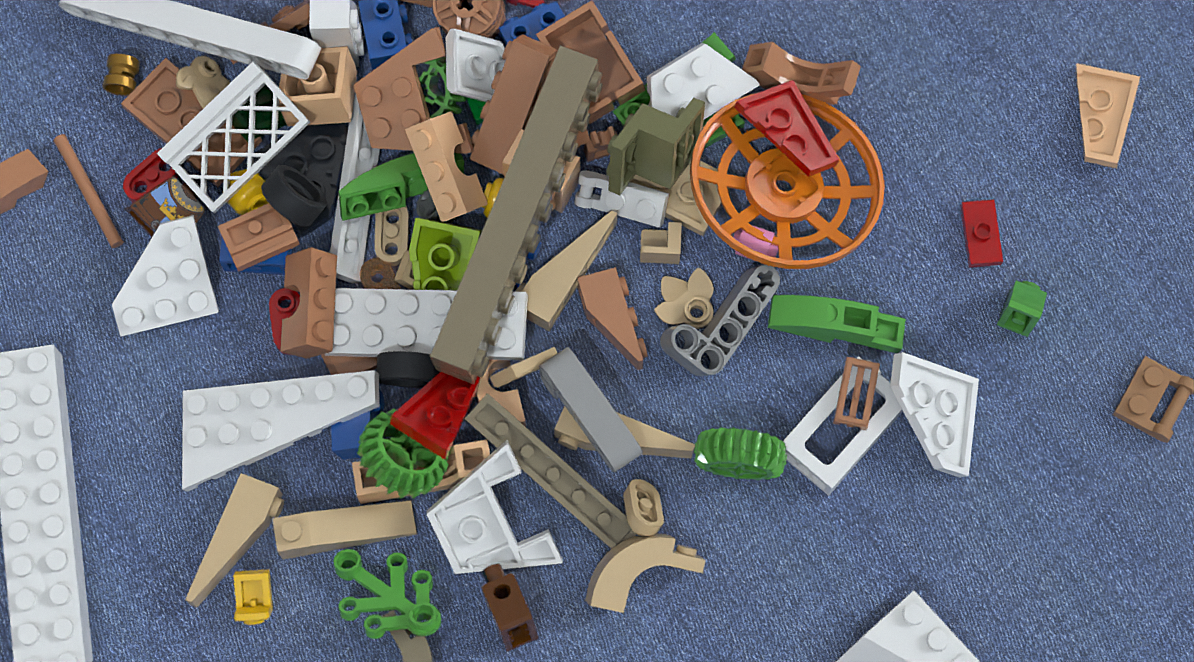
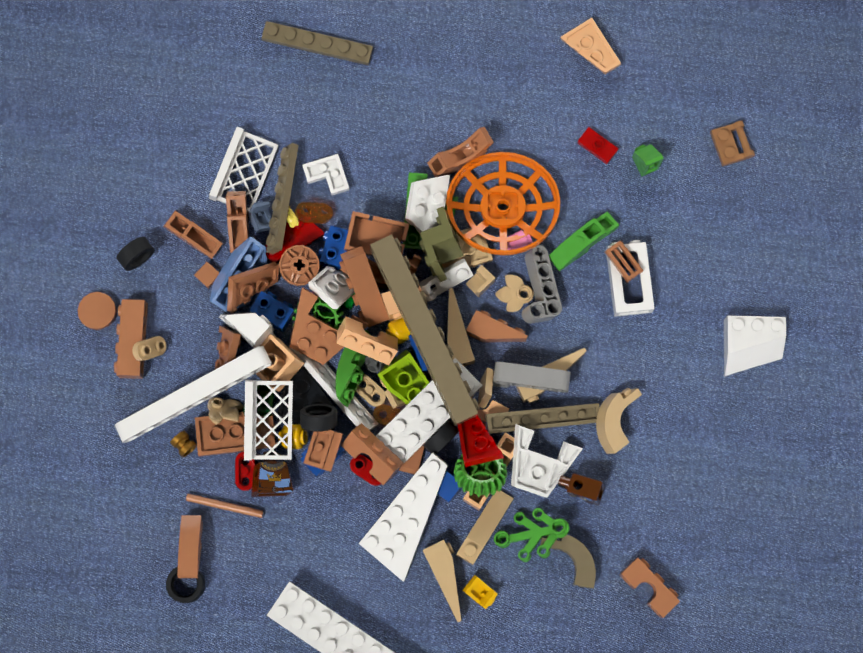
camera: 45 degrees left, 5 degrees up
(167, 281) = (303, 507): white plate -> none
(643, 508) = (591, 393): tan plate -> none
(740, 453) = (606, 332): bright green gear -> none
(791, 126) = (482, 180): wing -> none
(939, 409) = (660, 234): white plate -> none

